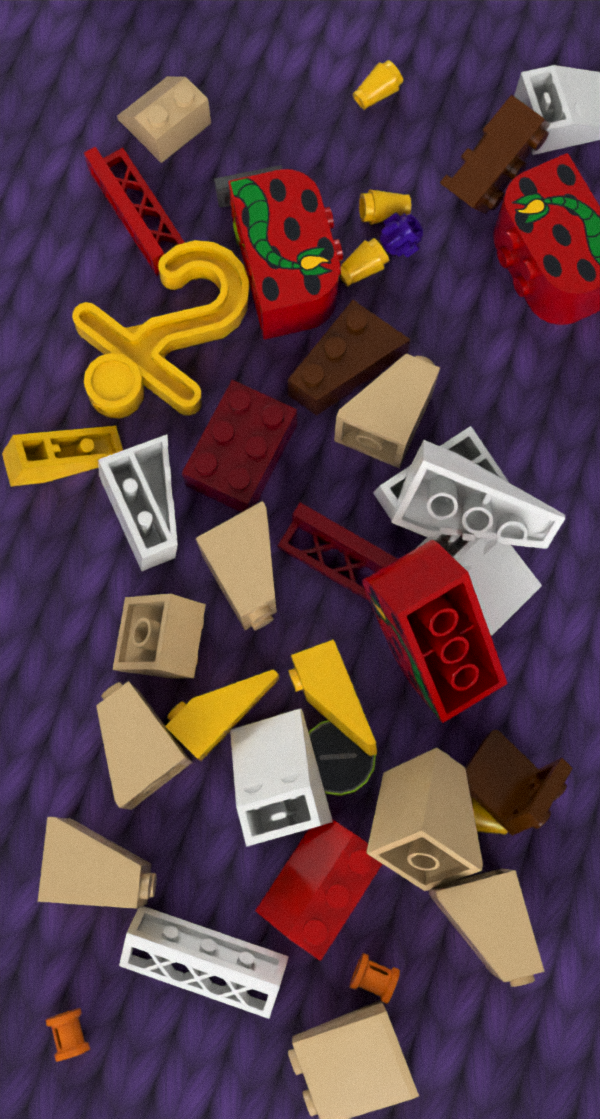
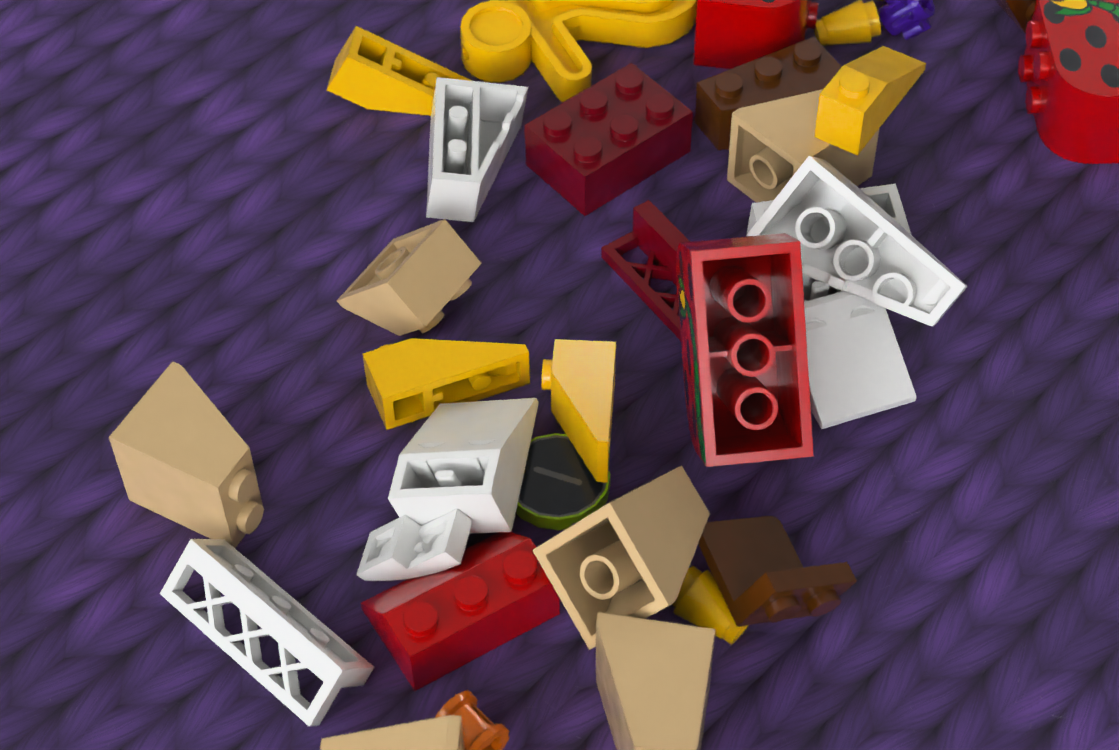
camera: 25 degrees right, 25 degrees down
(68, 1034) = (53, 633): orange bush -> none
(136, 746) = (316, 364): tan slope -> none
(242, 565) = (550, 233): tan slope -> none
(274, 861) = (412, 551): none -> white slope
(431, 365) = (864, 97): none -> yellow slope

